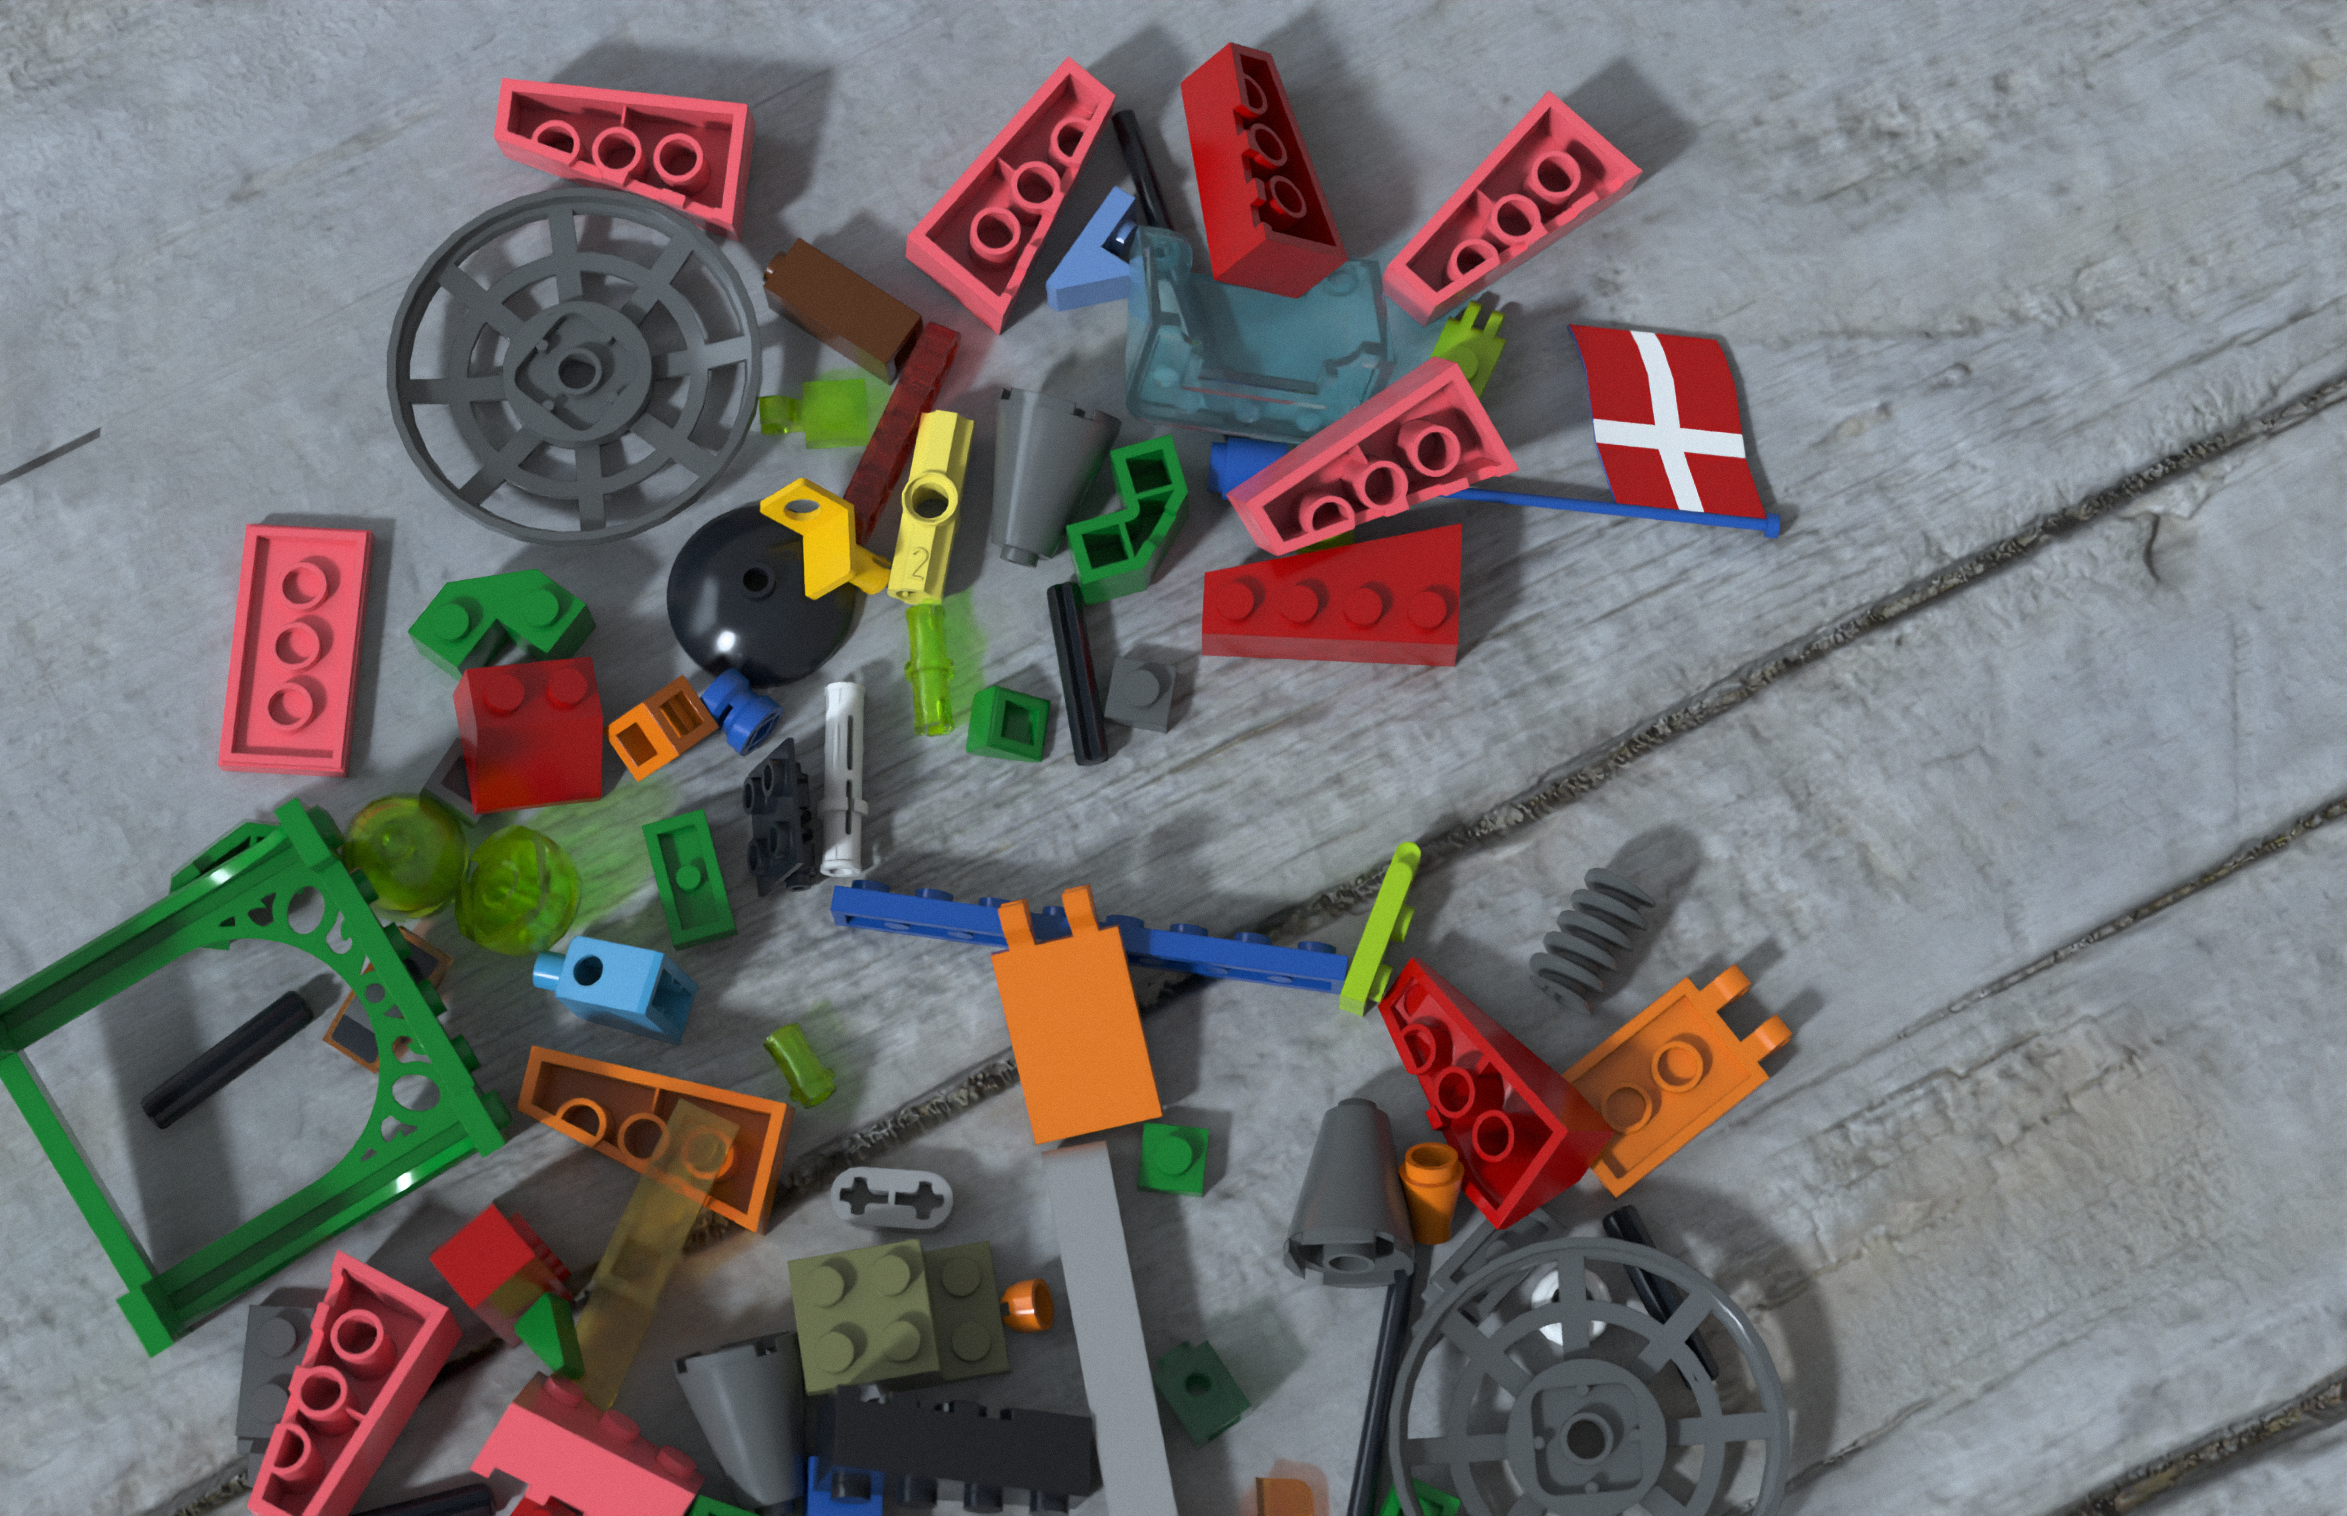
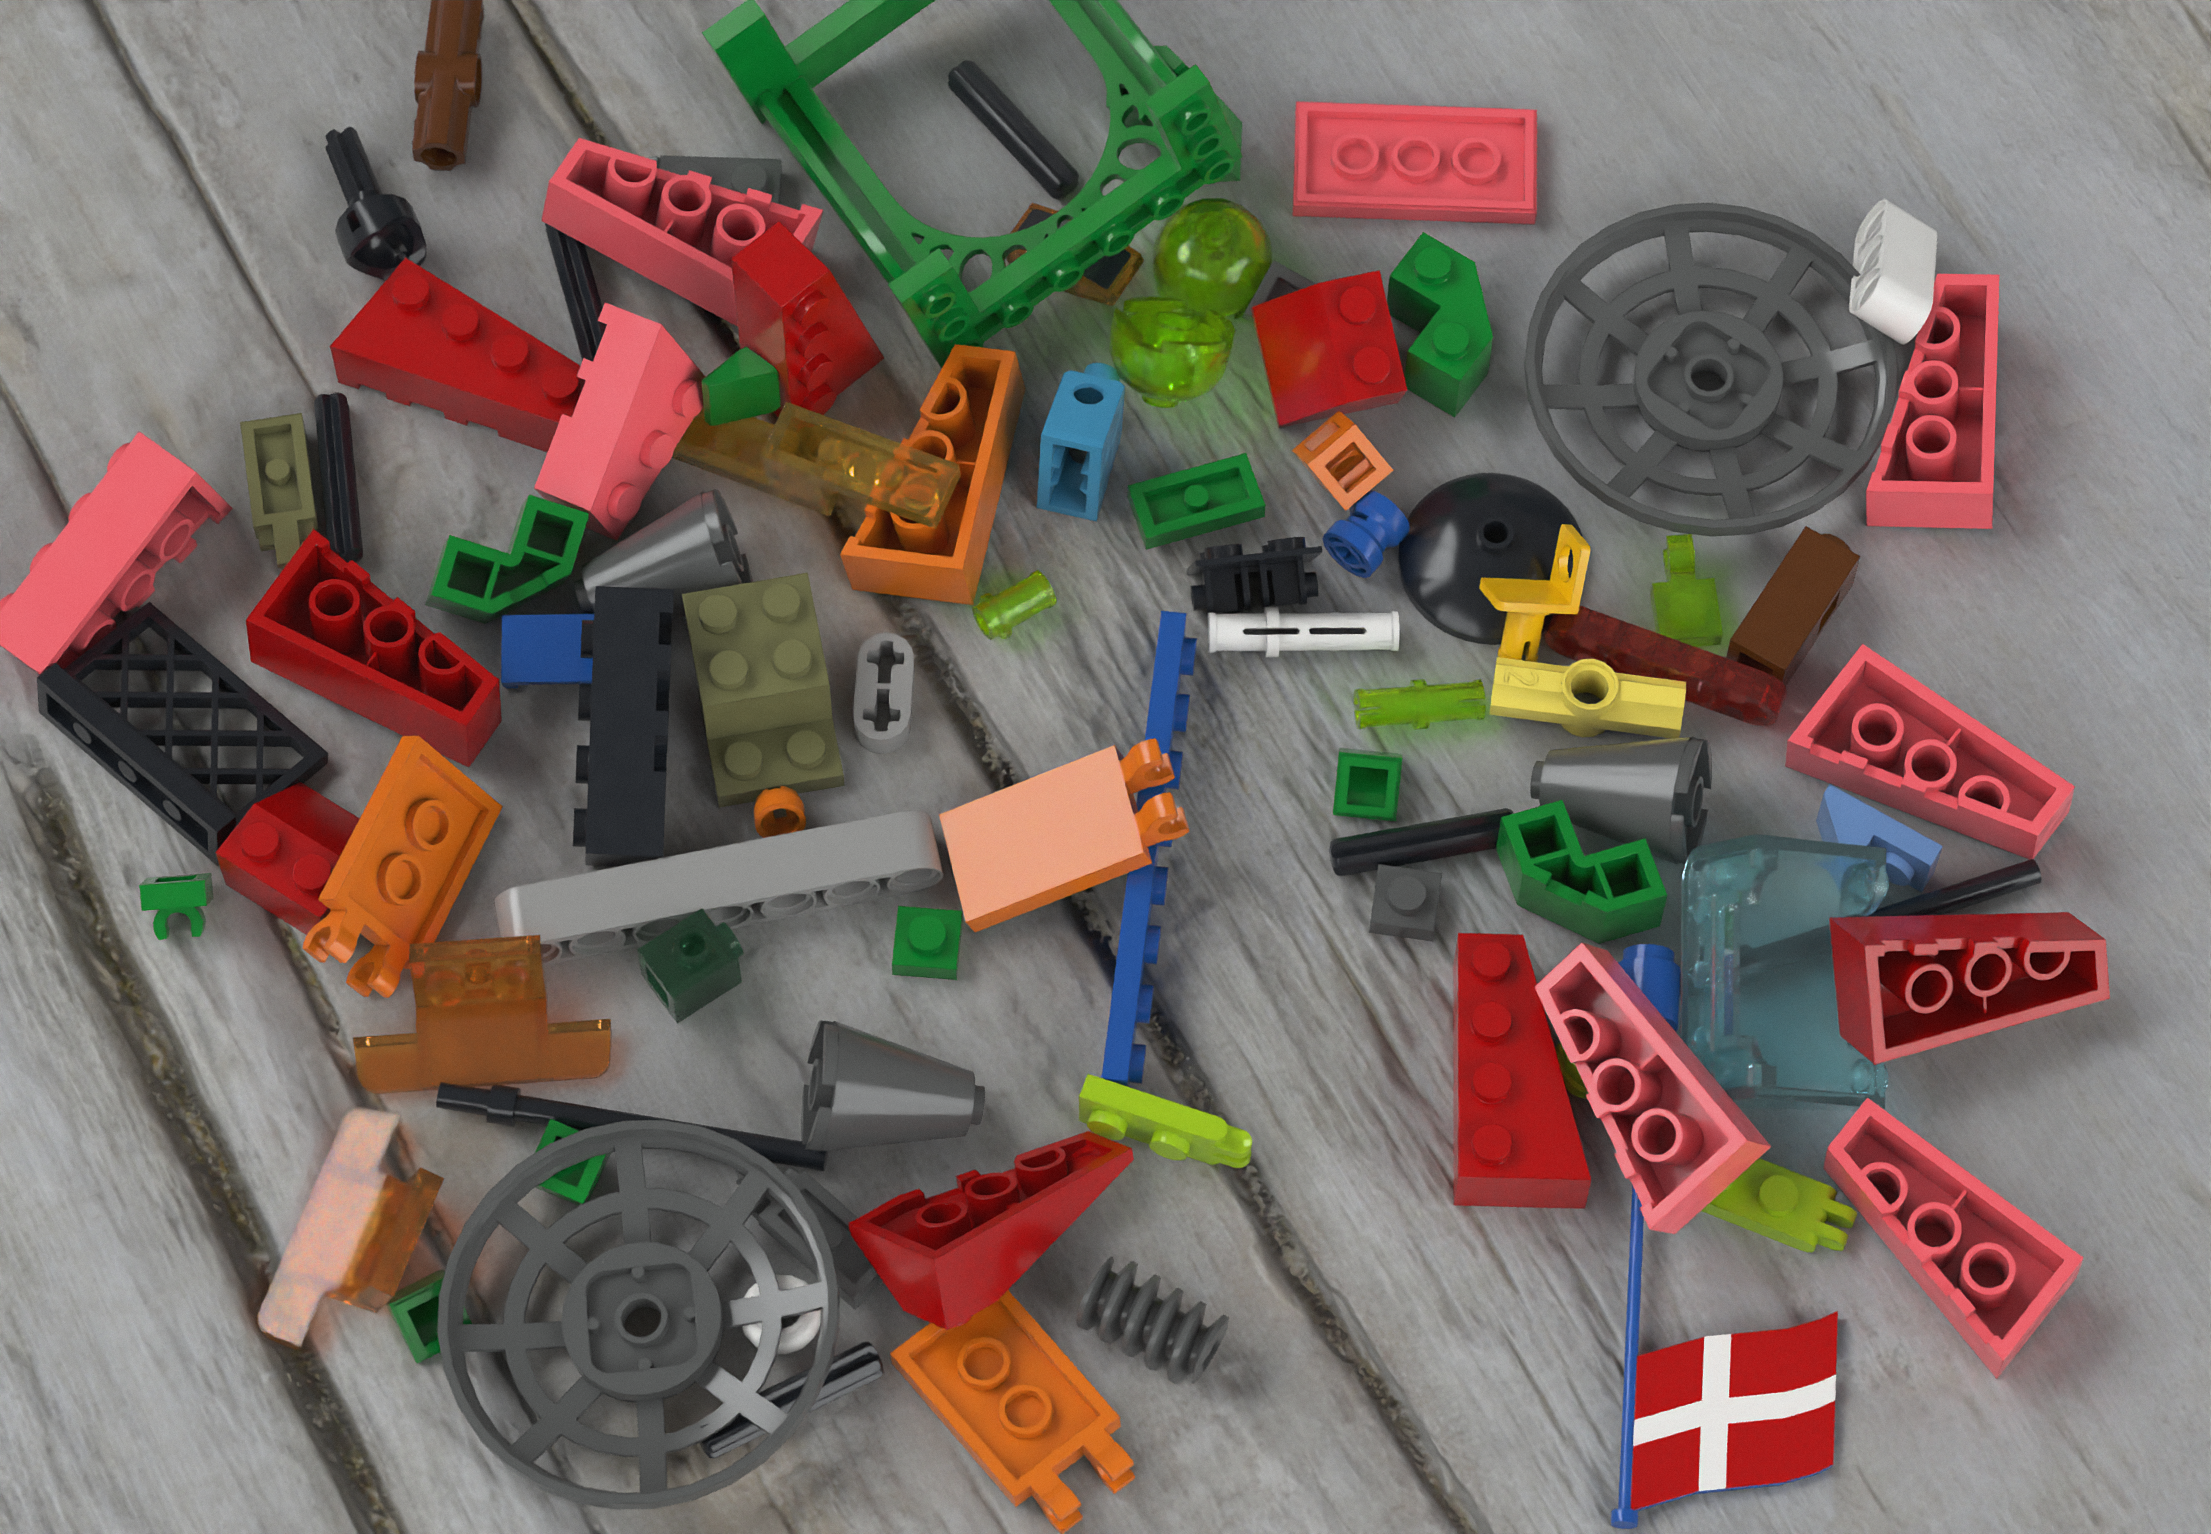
camera: 85 degrees right, 10 degrees down
(470, 178) = (1896, 271): none -> white beam
(1431, 1187) = (895, 1166): orange cone -> none

